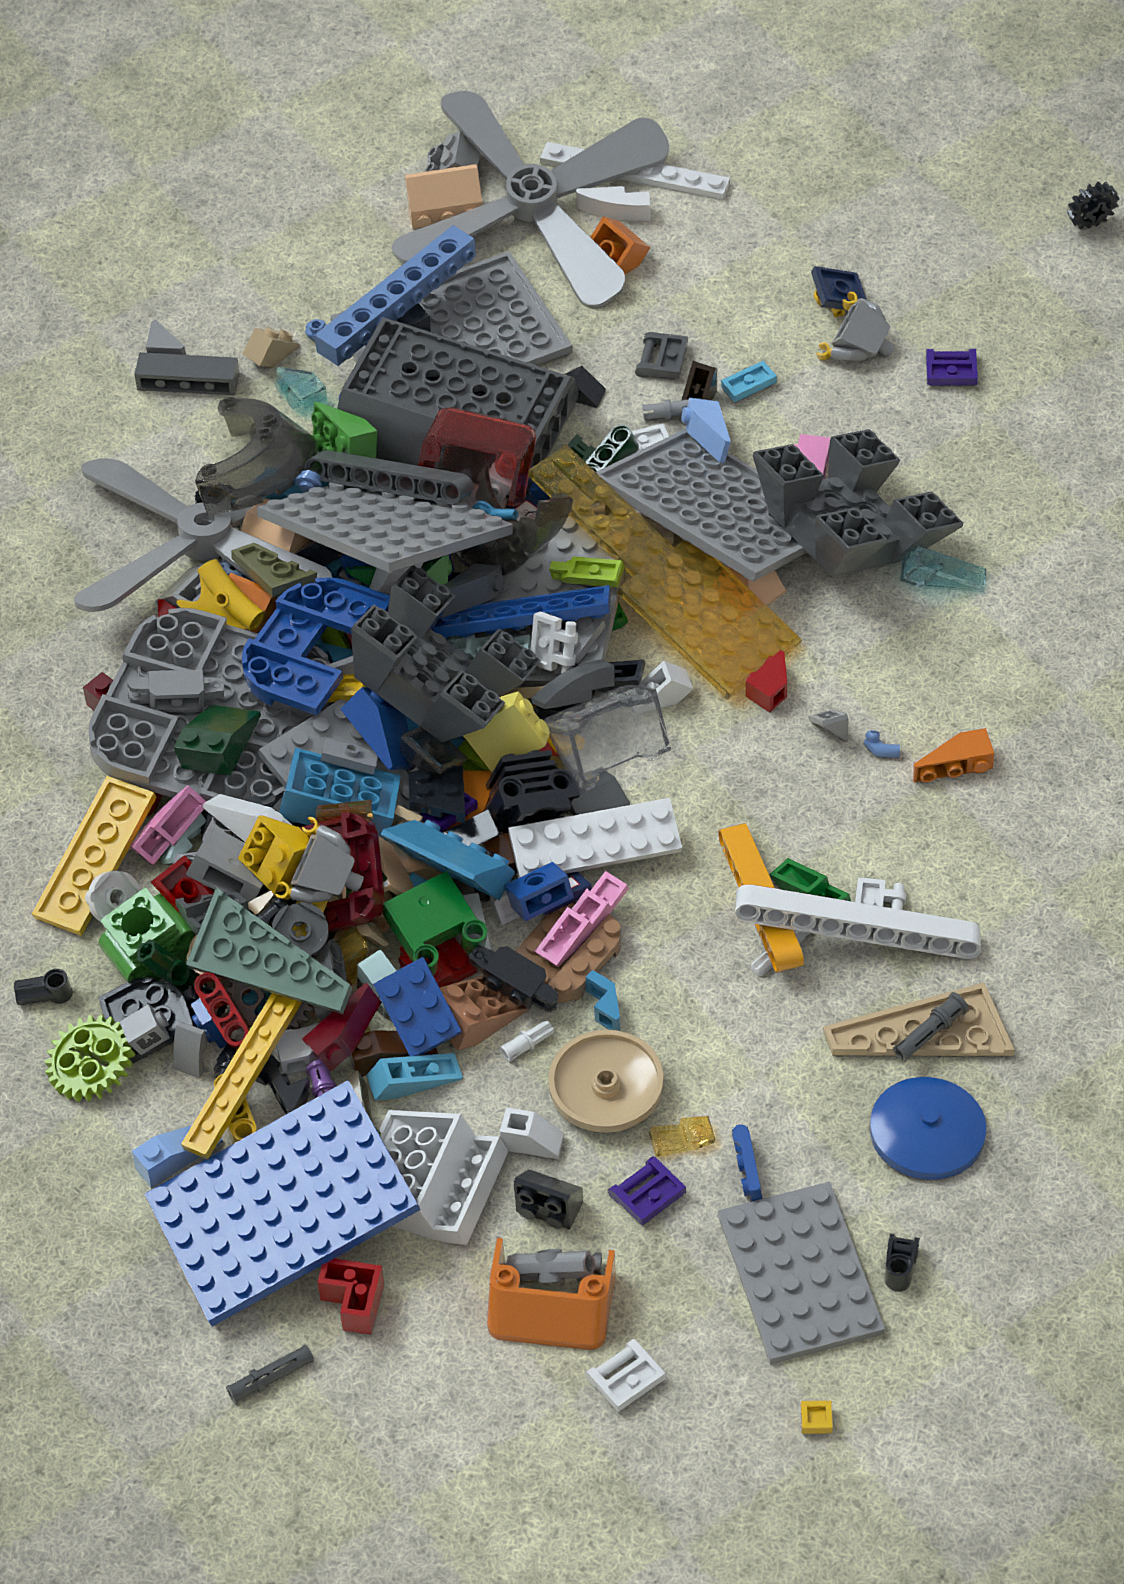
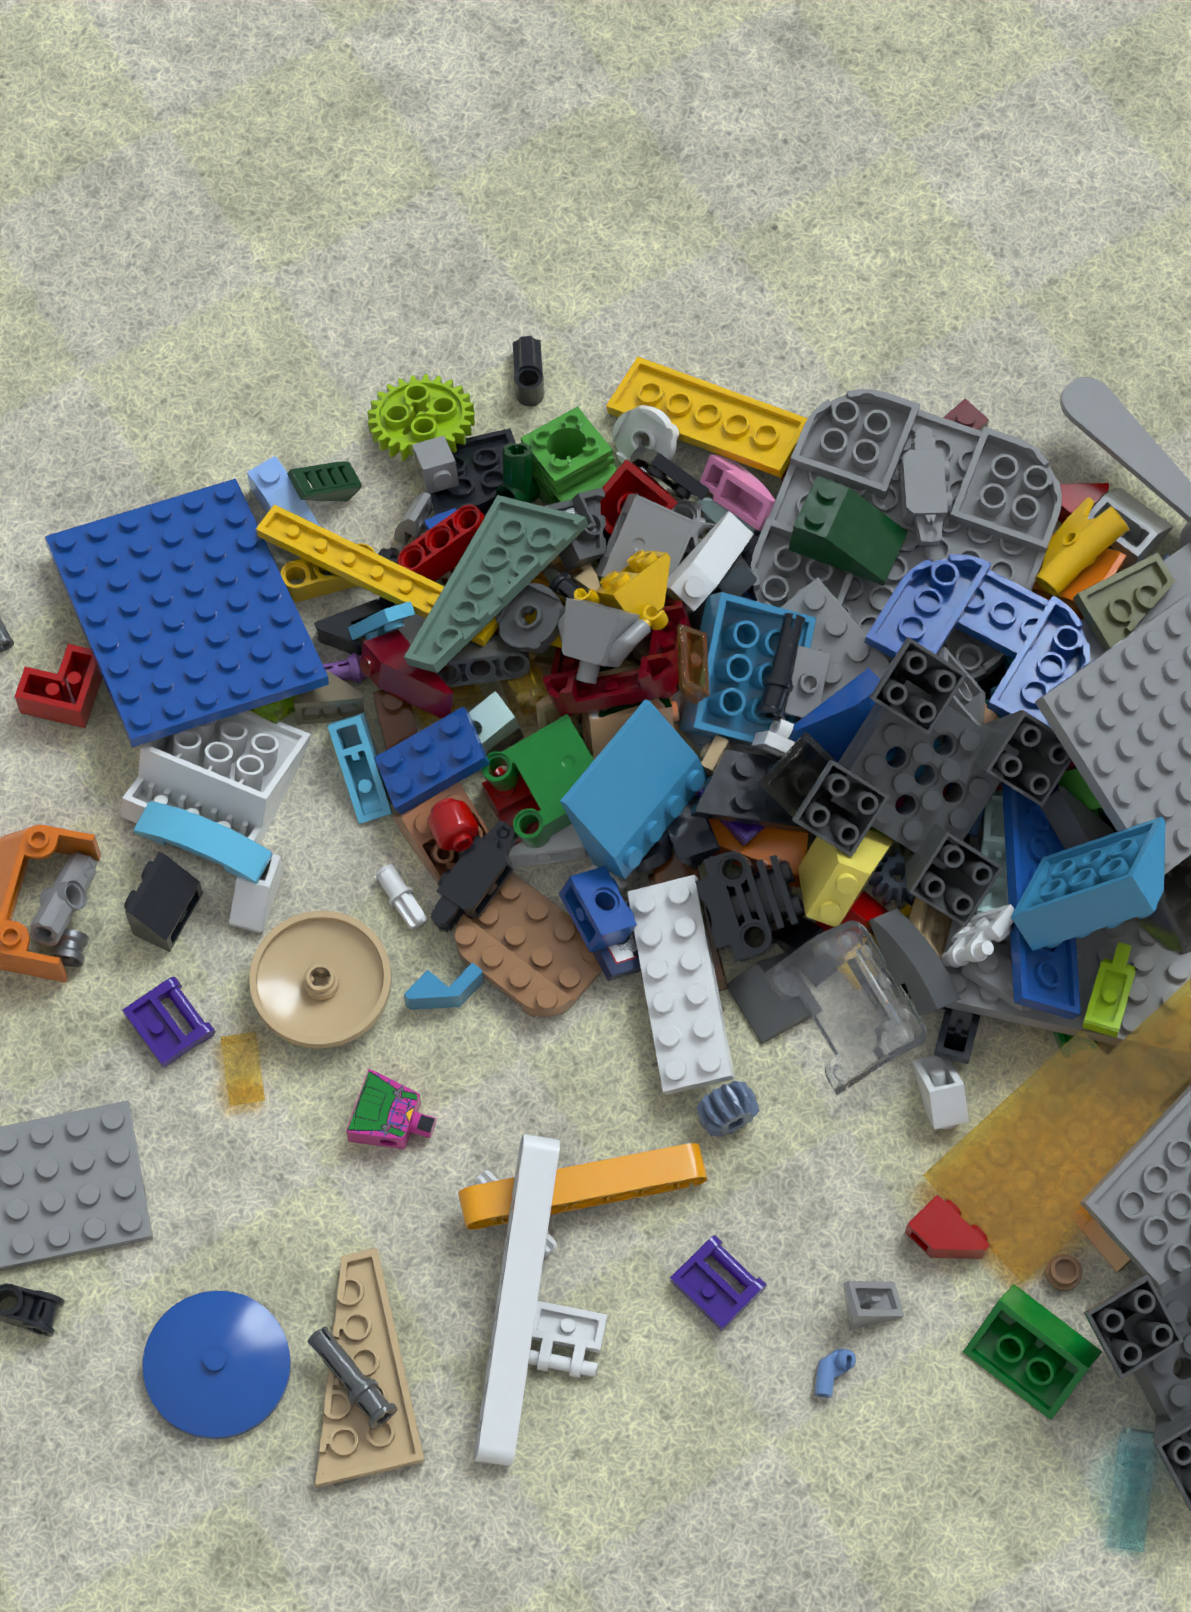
camera: 90 degrees right, 15 degrees up
(151, 868) = (664, 470): none -> black plate
(152, 1118) = (329, 482): none -> dark green slope
(294, 1050) = (382, 622): none -> medium azure plate
(353, 765) = (778, 683): none -> black pin
(400, 771) = (776, 739): none -> white tile
(477, 982) = (452, 825): none -> red head
(494, 1162) = (204, 838): none -> medium azure slope
(521, 553) = (1094, 886): none -> dark azure slope
(581, 921) = (561, 964): bright pink slope -> none
(690, 810) = (727, 1108): none -> sand blue gear
(711, 1031) = (387, 1114): none -> torso
(746, 1162) = (187, 1140): blue hinge -> none
(791, 616) = (1063, 1272): none -> medium nougat plate
(801, 879) = (594, 1256): green slope -> none
(828, 821) = (709, 1290): none -> dark purple plate
(853, 630) = (1032, 1351): none -> green slope
(960, 755) = (806, 1476): orange slope -> none

